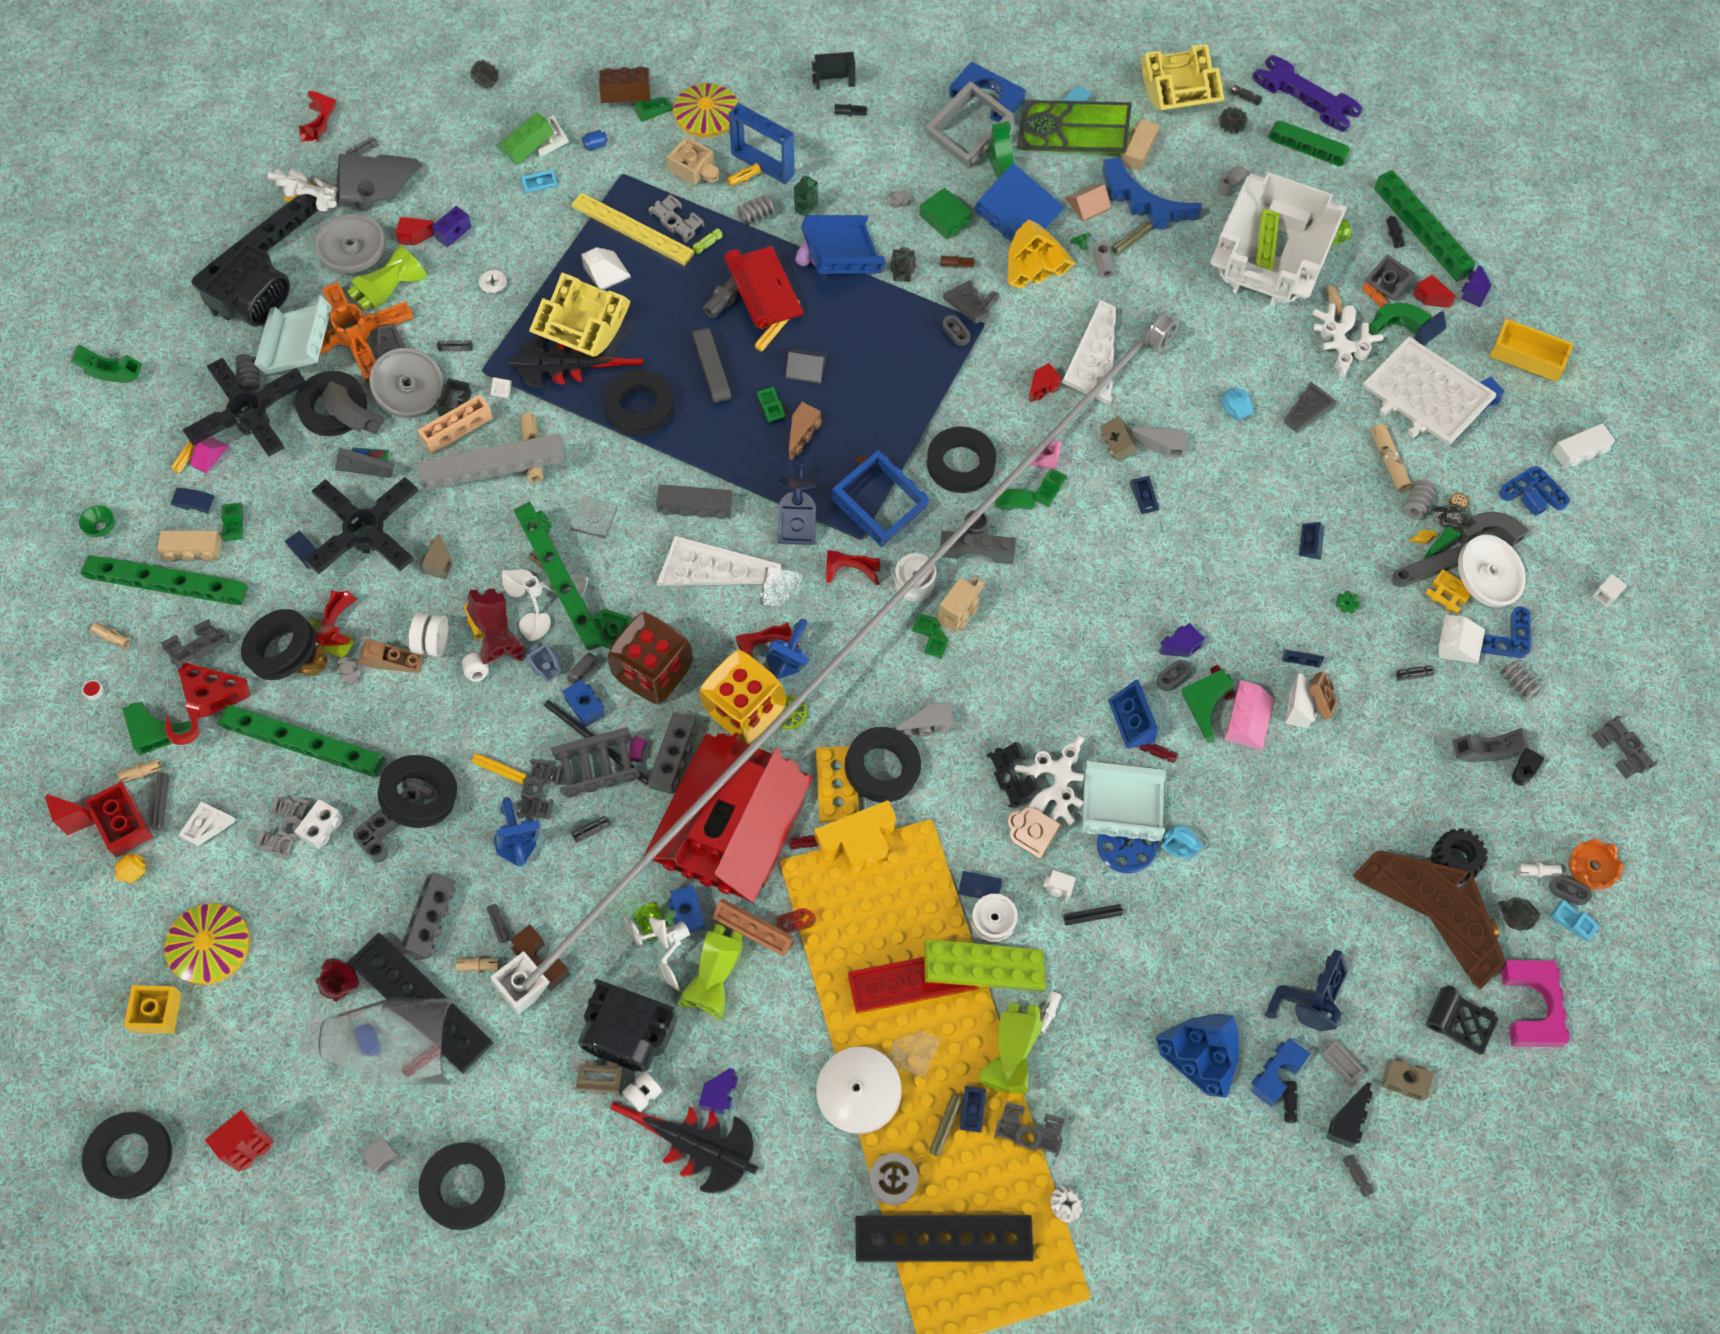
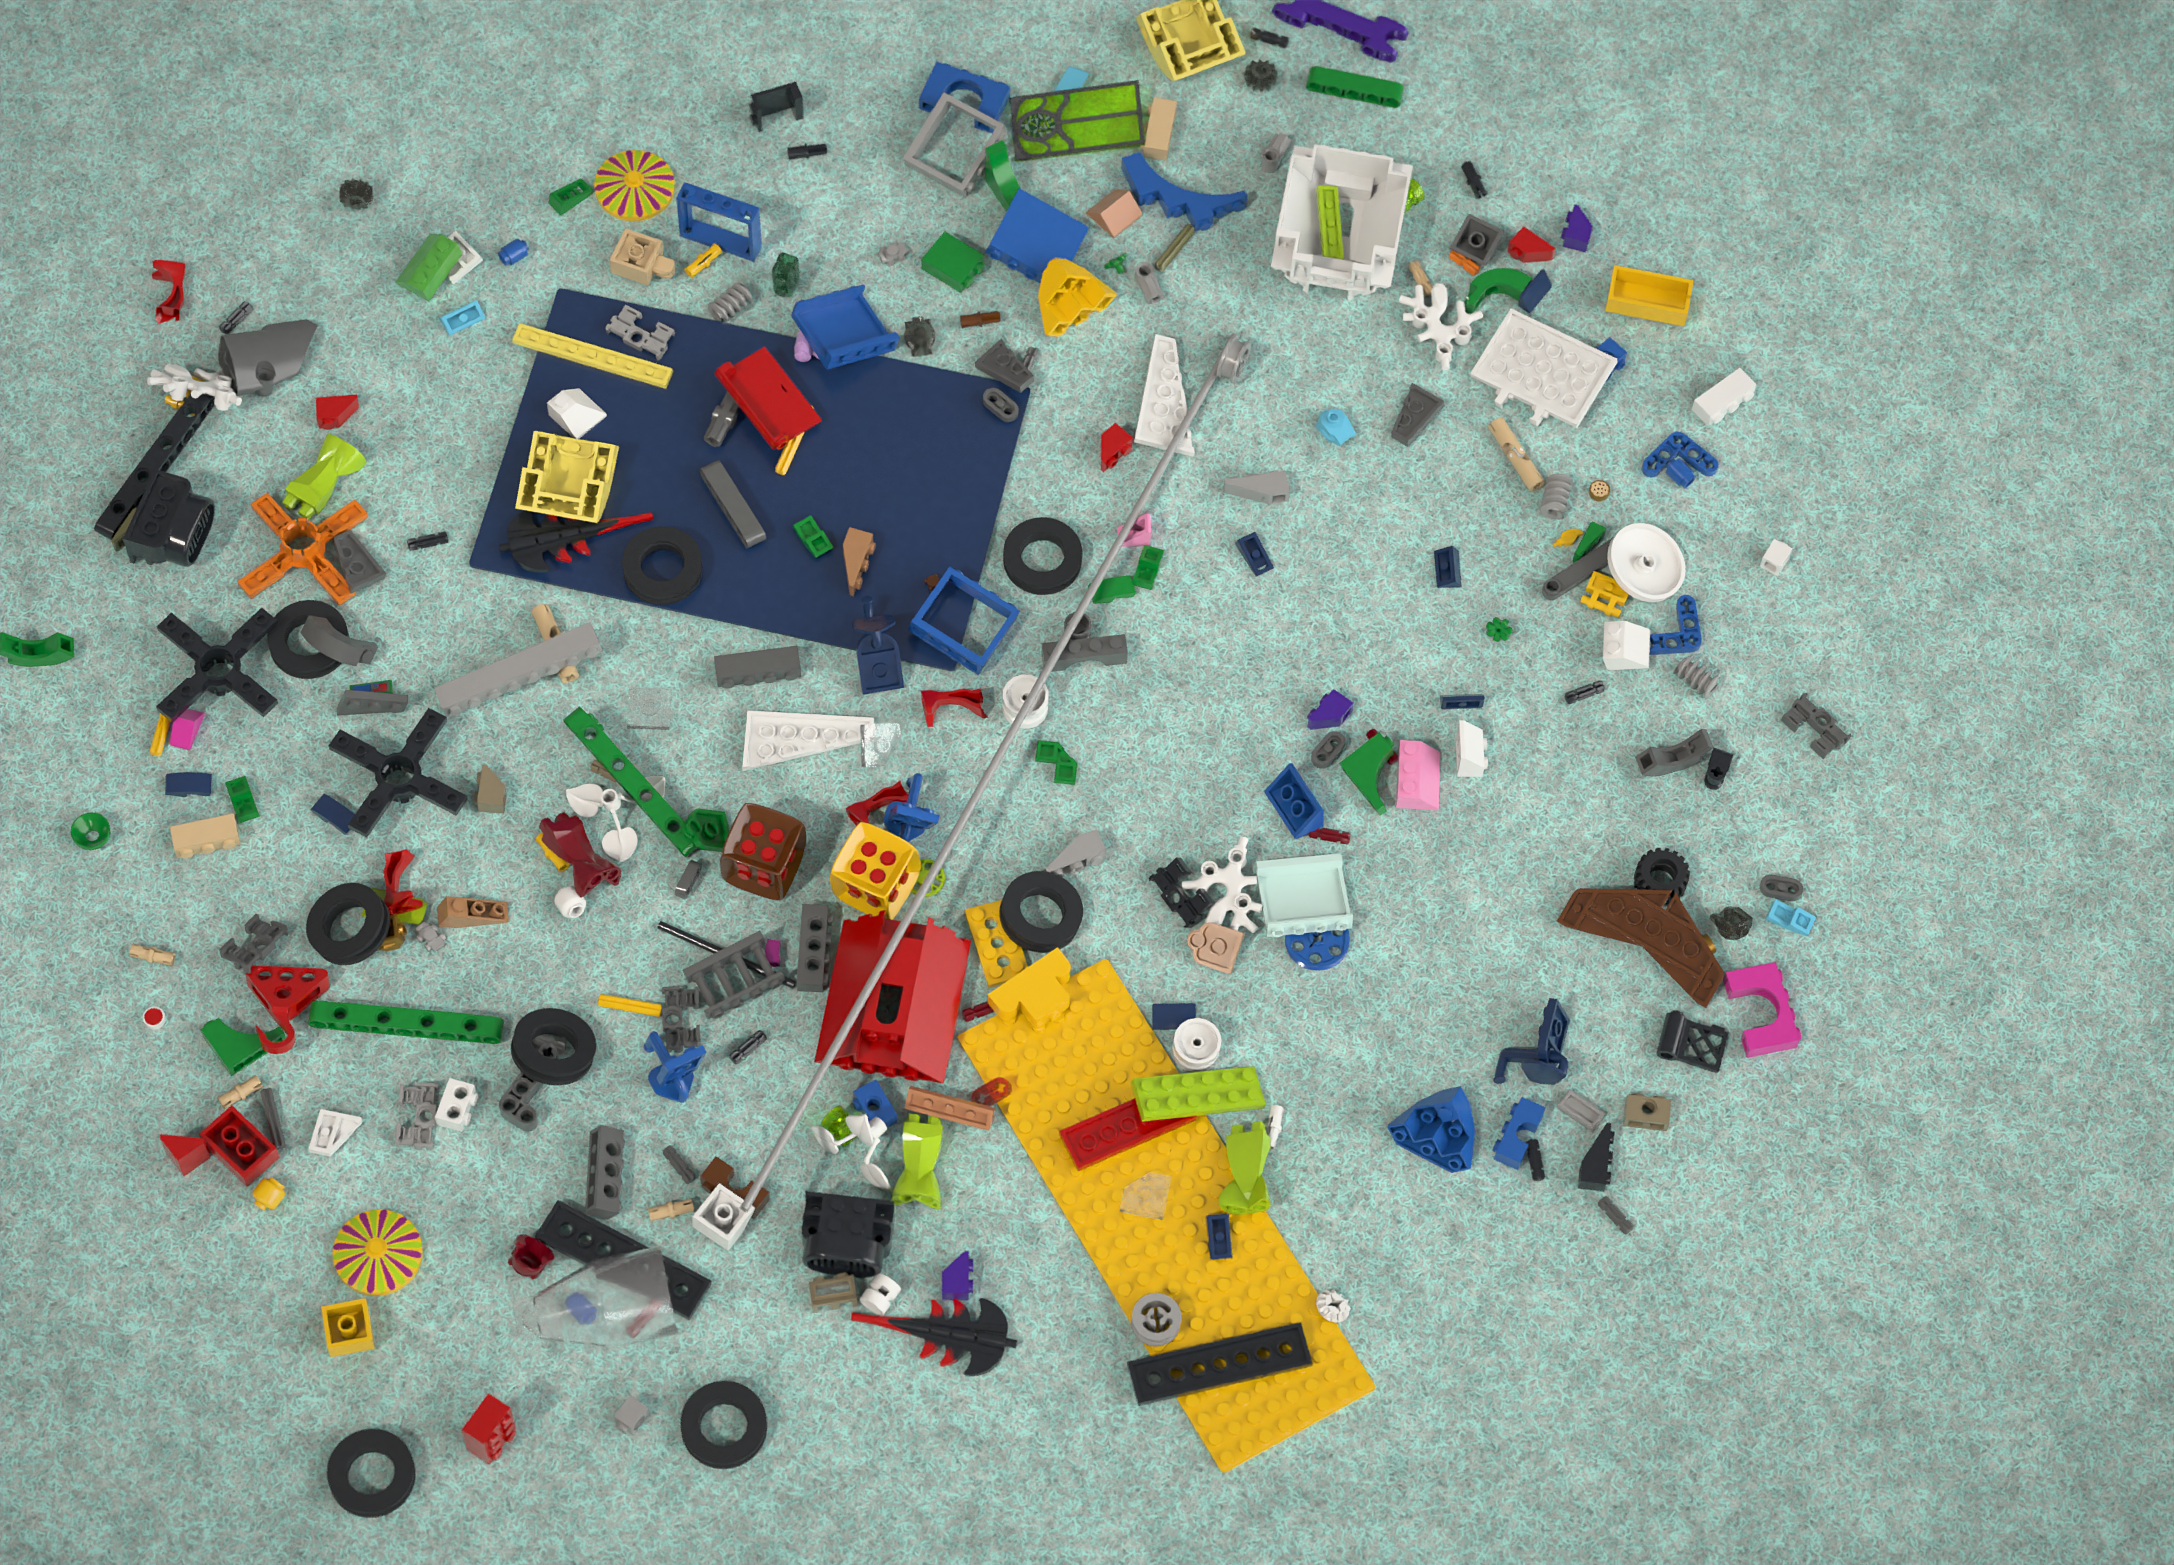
camera: 15 degrees left, 0 degrees up
(164, 580) = (190, 881): green beam -> none
(247, 372) = (199, 620): dark grey piece -> none
(293, 338) = (242, 571): light aqua panel -> none
(350, 243) = (266, 442): light grey dish -> none
(408, 368) = (392, 580): light grey dish -> none
(428, 634) = (510, 877): white wheel -> none
(451, 226) = (378, 396): dark purple brick -> none
(453, 395) = (448, 605): pearl dark grey window -> none
(455, 424) = (461, 634): light nougat brick -> none
(486, 278) = (452, 448): white gear -> none
(500, 388) = (497, 580): white tile -> none
(544, 661) = (645, 880): sand blue hand -> none
(576, 695) = (705, 926): blue brick -> none
(625, 85) = (530, 175): reddish brown brick -> none
(707, 241) = (685, 353): lime axle -> none
(805, 365) = (840, 482): slope -> none
(871, 1105) = (1102, 1263): white dish -> none
(945, 1125) = (1195, 1258): olive axle -> none
(960, 604) = (1081, 721): tan brick -> none
(1010, 1131) = (1262, 1249): dark grey piece -> none
(1059, 884) = (1256, 996): white brick -> none
(1093, 914) = (1297, 1019): black axle -> none
(1119, 438) = (1212, 495): dark tan brick -> none
(1181, 842) = (1372, 925): medium azure hand -> none
(1323, 691) = (1489, 732): medium nougat plate -> none
(1424, 225) = (1505, 165): green brick -> none
(1450, 515) = (1591, 509): clear smoke hand -> none
(1494, 523) = (1642, 507): dark grey arch -> none
(1539, 870) = (1746, 873): white pin -> none
(1604, 856) = (1802, 843): orange plate -> none

